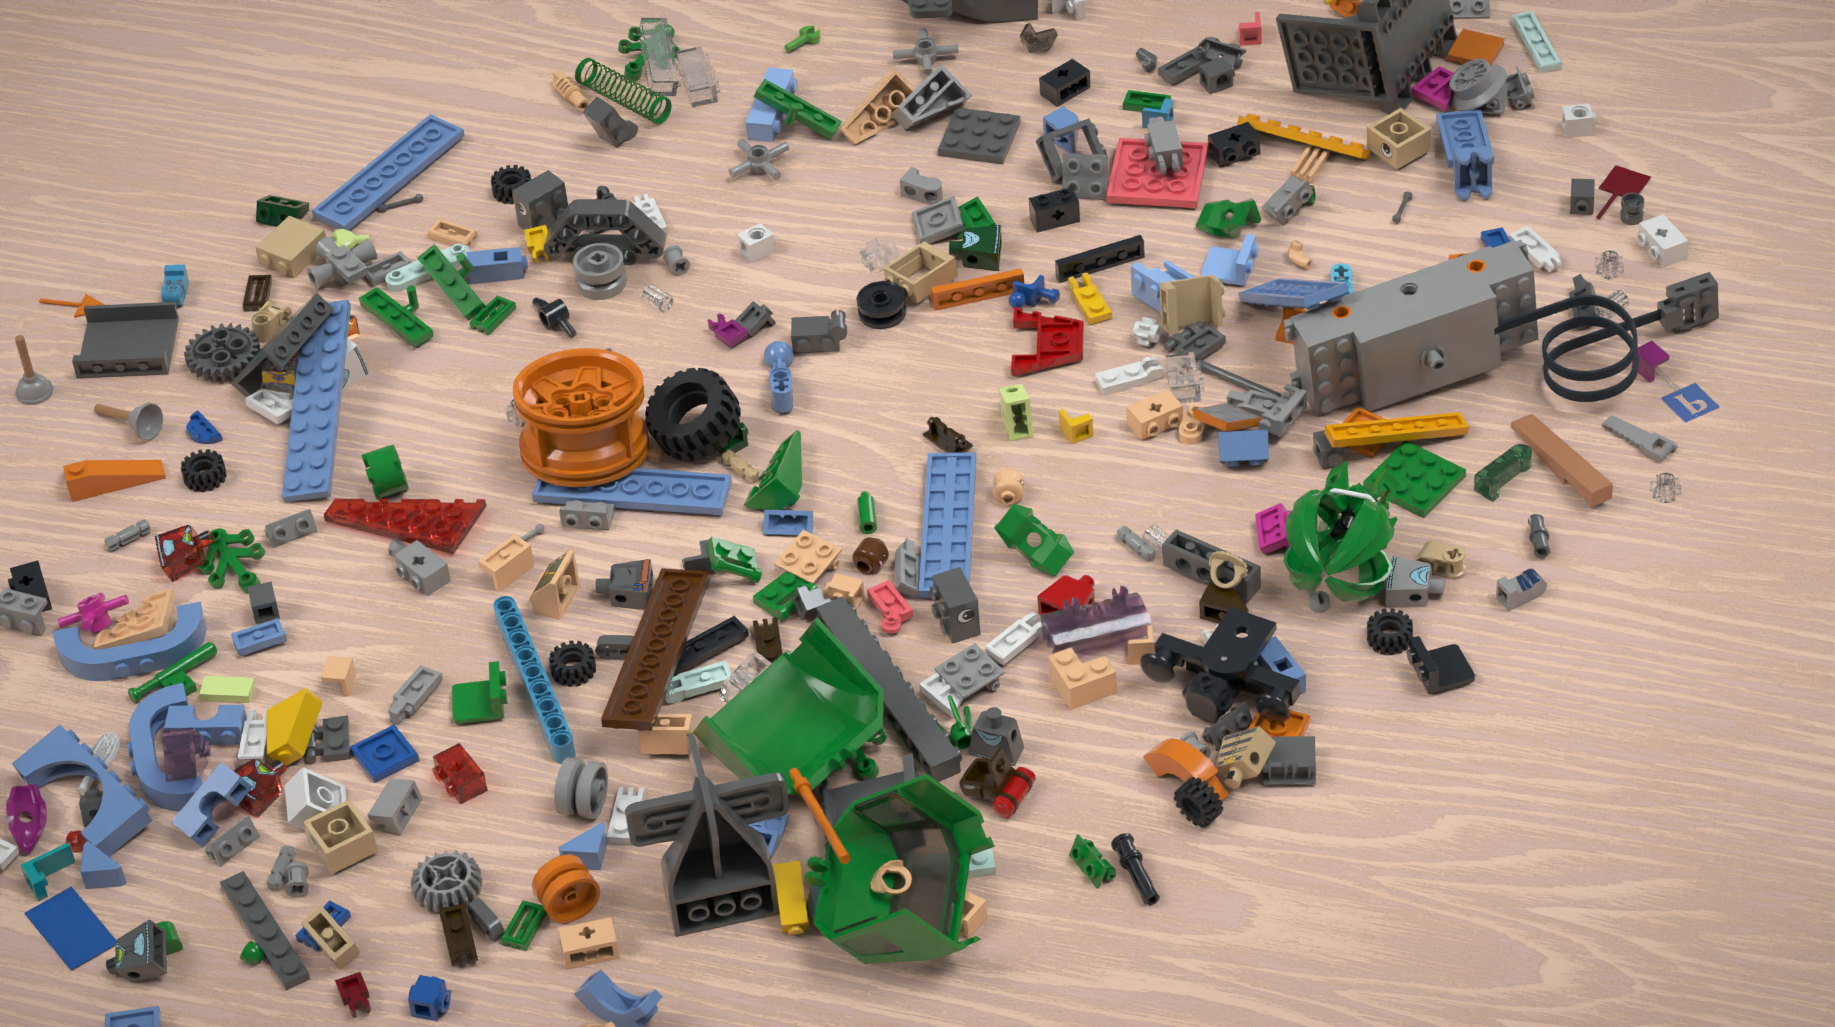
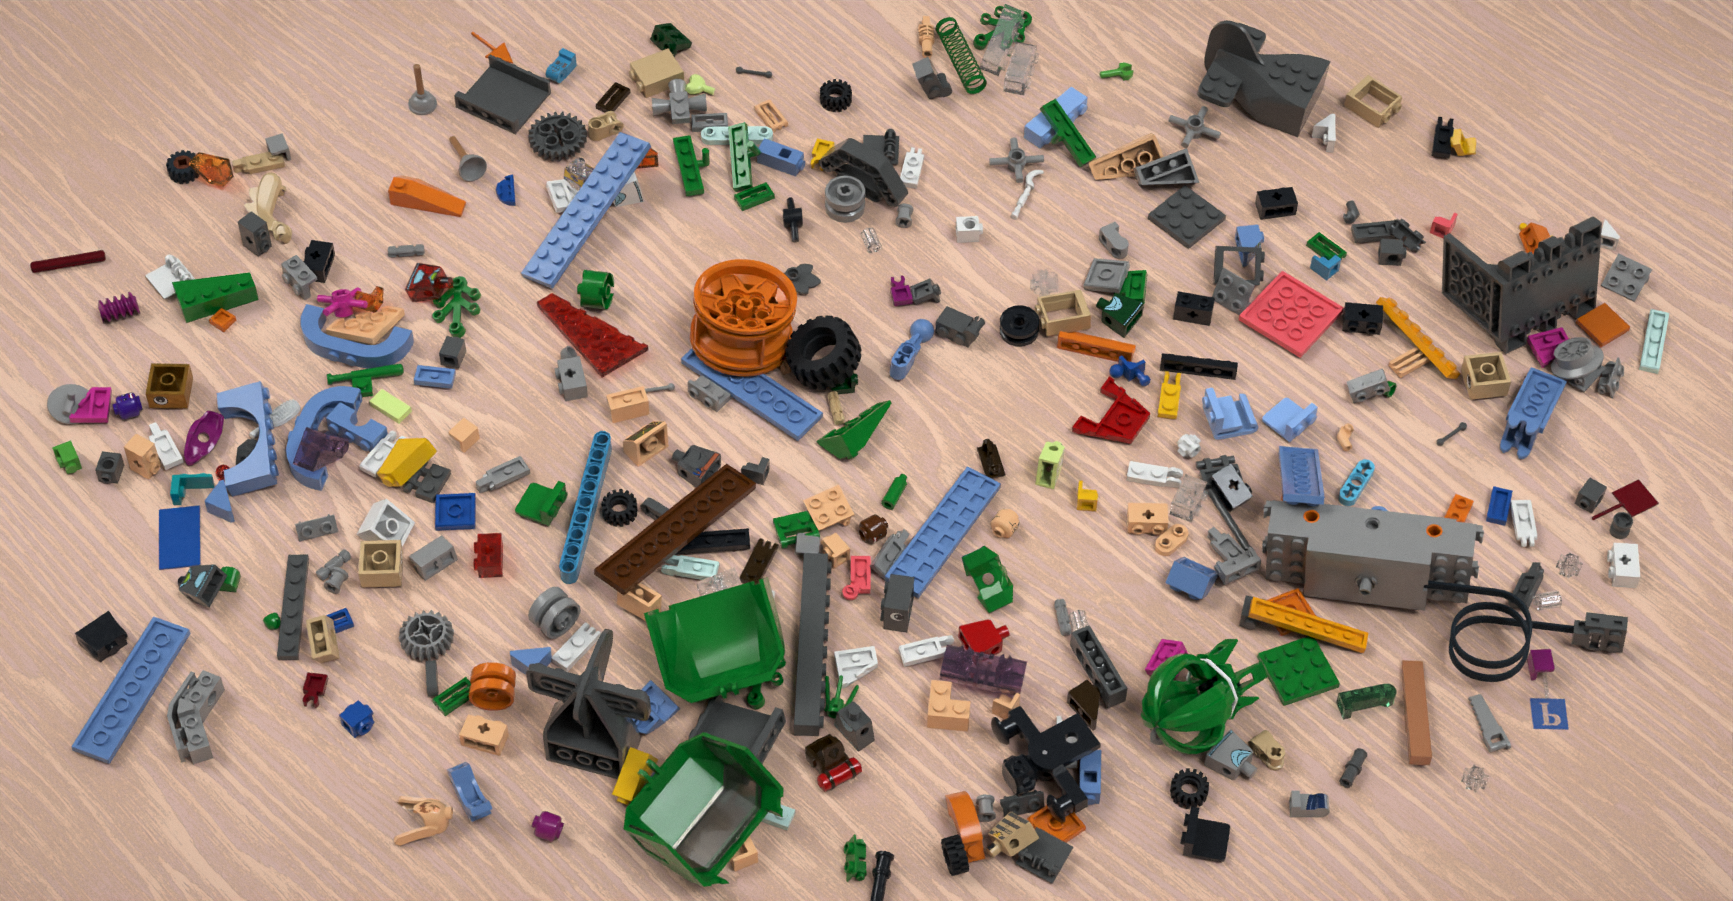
camera: 25 degrees right, 10 degrees up
(133, 592) = (374, 299): none -> clear orange panel
(196, 815) = (302, 498): medium blue arch -> none
(206, 479) = (485, 233): black tyre -> none
(265, 784) = (357, 492): clear red torso -> none
(283, 343) = (590, 154): dark grey panel -> none
(290, 528) = (510, 300): light grey hinge -> none
(388, 173) = (760, 44): medium blue plate -> none
(458, 933) = (407, 680): dark brown hinge -> none
(540, 201) = (840, 122): dark grey brick -> none
(730, 992) = (547, 826): none -> magenta head
(733, 559) = (780, 480): green plate -> none
(787, 522) = (837, 470): medium blue slope -> none
(790, 178) = (1029, 186): none -> white piece
(803, 789) = (687, 698): orange bar -> none
(896, 866) = (692, 800): light nougat piece -> none
(970, 671) = (874, 661): light grey hinge -> none
(1037, 41) = (1281, 156): clear smoke bracket -> none
(1164, 145) = (1307, 295): light grey hinge -> none
(1191, 301) = (1233, 438): tan panel -> none
(1214, 213) = (1305, 371): green piece -> none
(1218, 558) = (1097, 667): tan piece -> none
(1220, 347) = (1232, 497): none -> brick
(1226, 417) = (1194, 548): tile -> none
(1578, 120) = (1635, 427): white brick -> none

